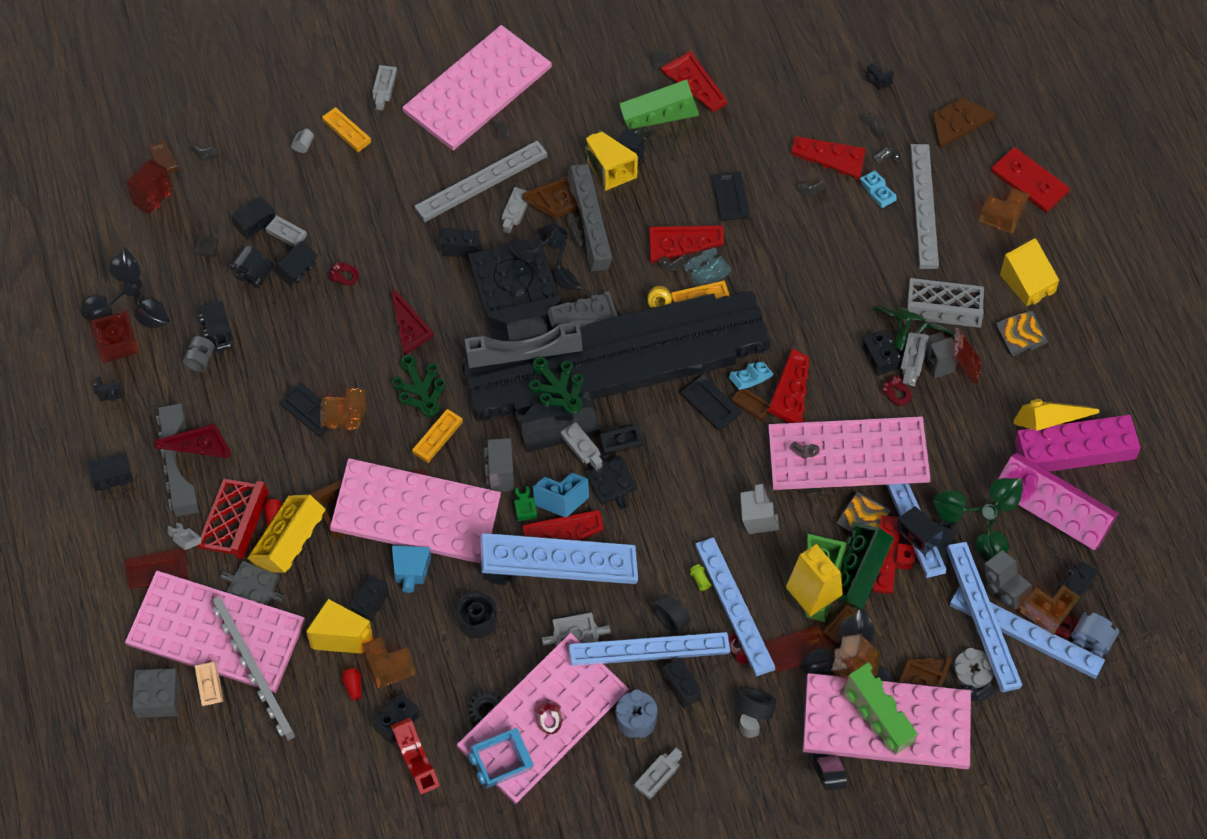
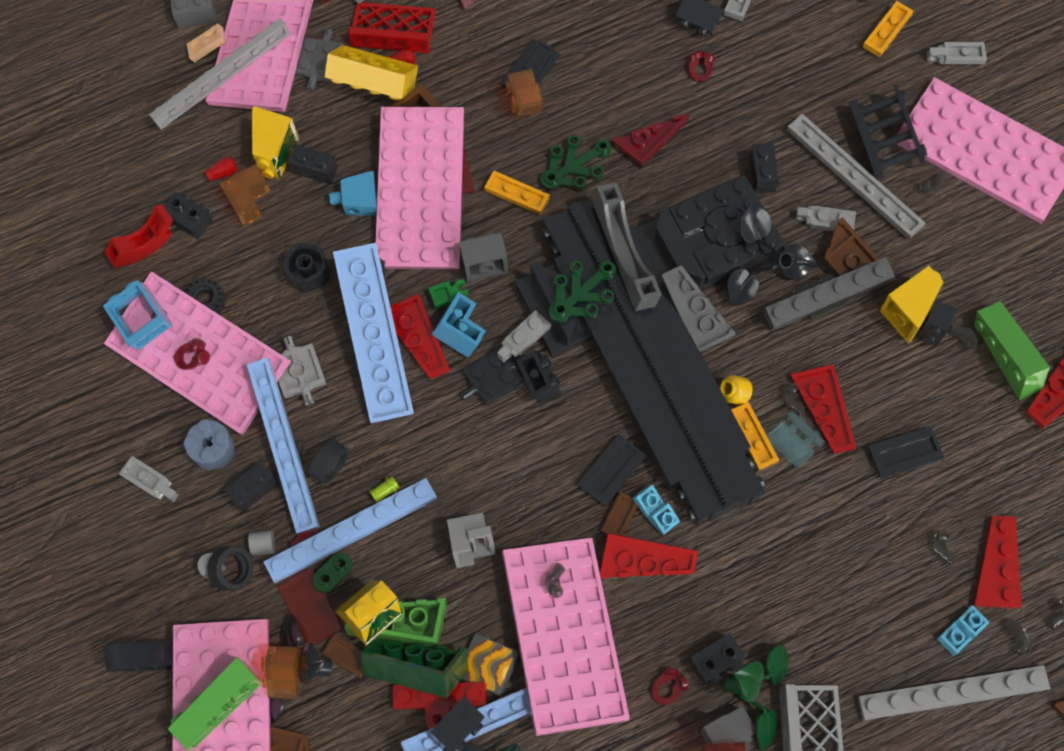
camera: 85 degrees right, 10 degrees up
(457, 164) = (873, 147): none -> black fence
(732, 681) = (261, 543): none -> light grey brick
(767, 623) = (332, 572): none -> dark green plate
(913, 357) = (713, 700): light grey hinge -> none

